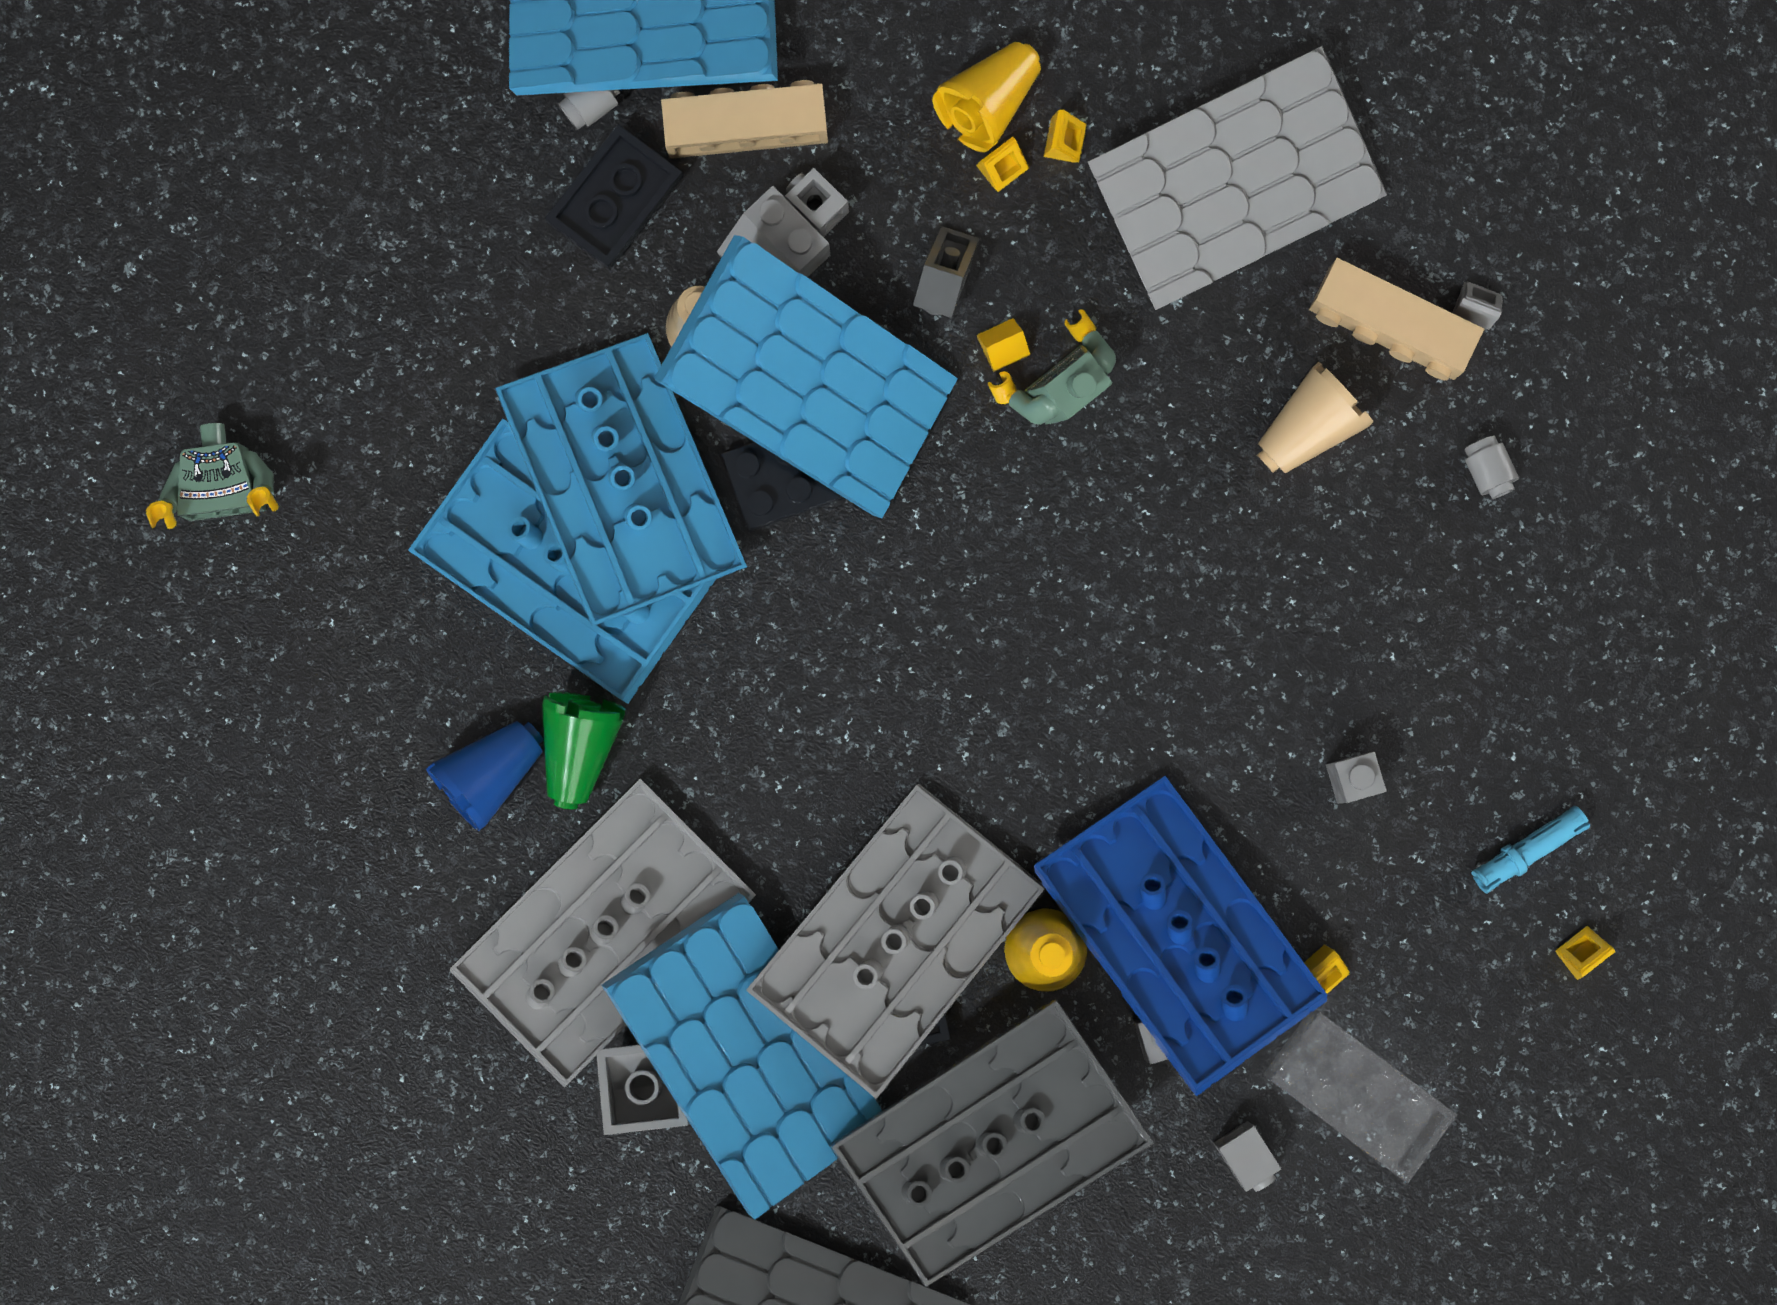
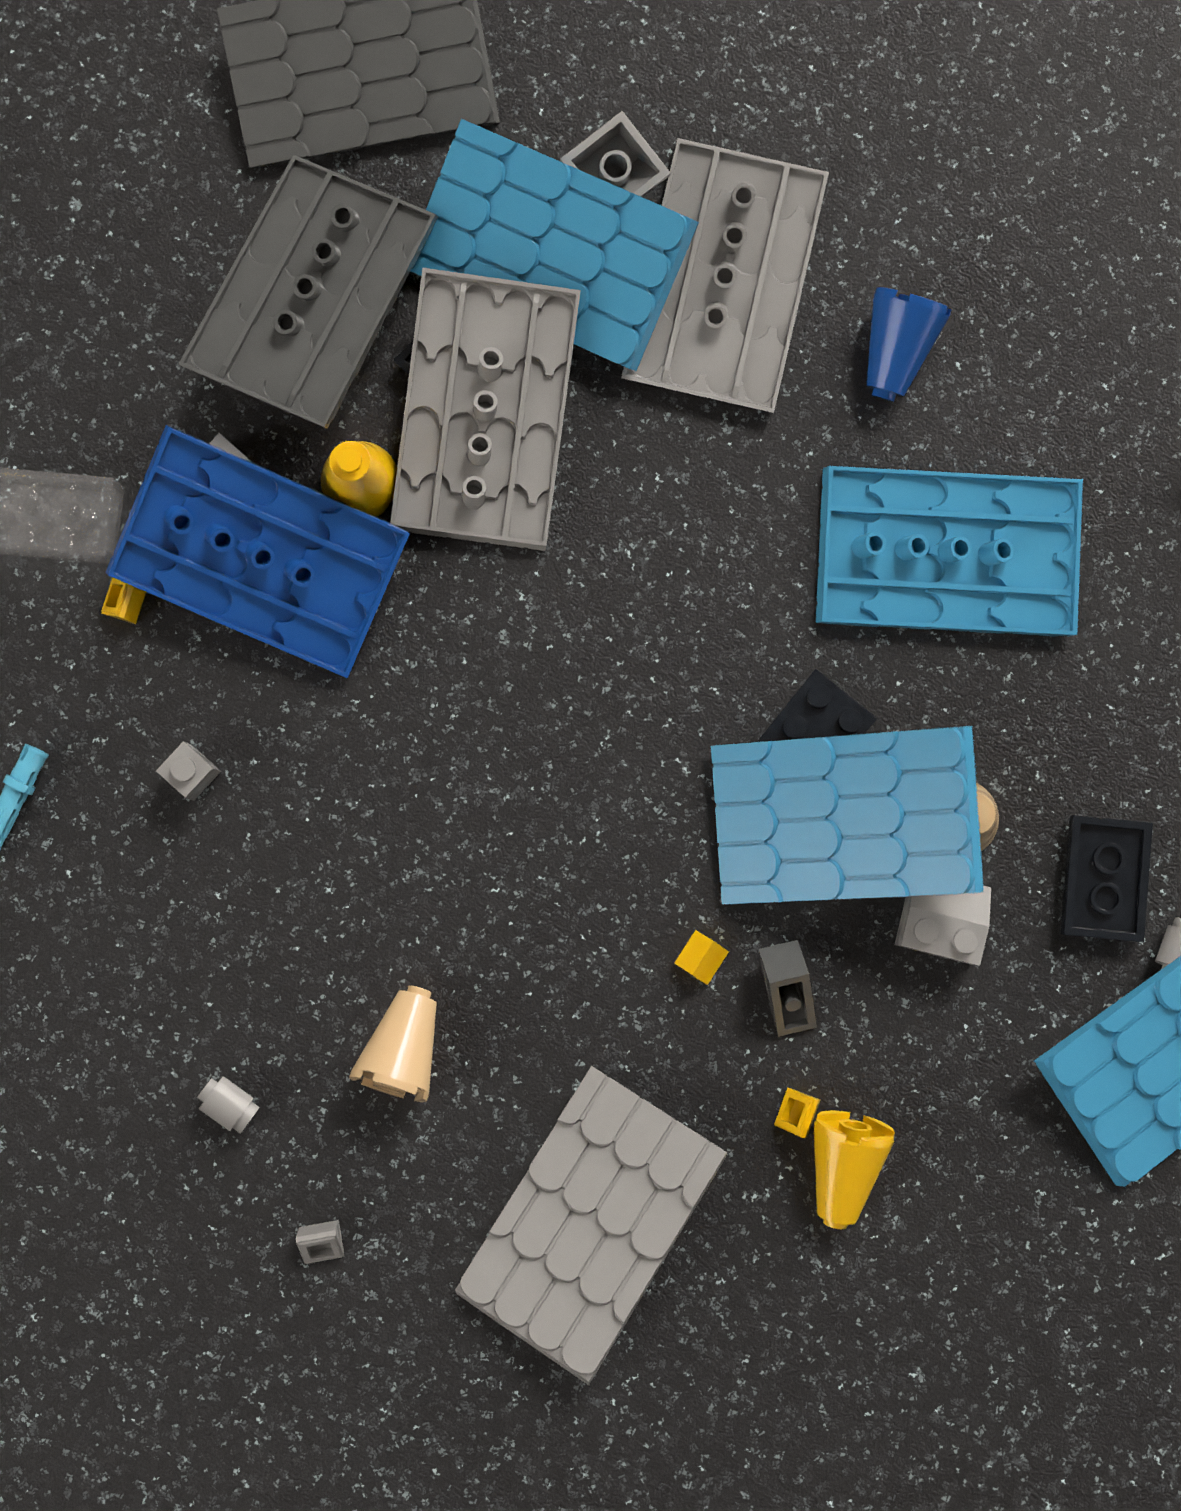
camera: 145 degrees right, 0 degrees up
(577, 744) = (843, 408): green cone -> none
(620, 479) = (948, 641): dark azure piece -> none
(744, 119) = (1040, 1012): tan brick -> none
(815, 186) = (951, 985): light grey brick -> none
(1065, 137) = (759, 1169): yellow slope -> none
(1067, 384) = (625, 954): sand green torso -> none
(1248, 1157) = (97, 413): light grey brick -> none
(1395, 320) = (382, 1182): tan brick -> none

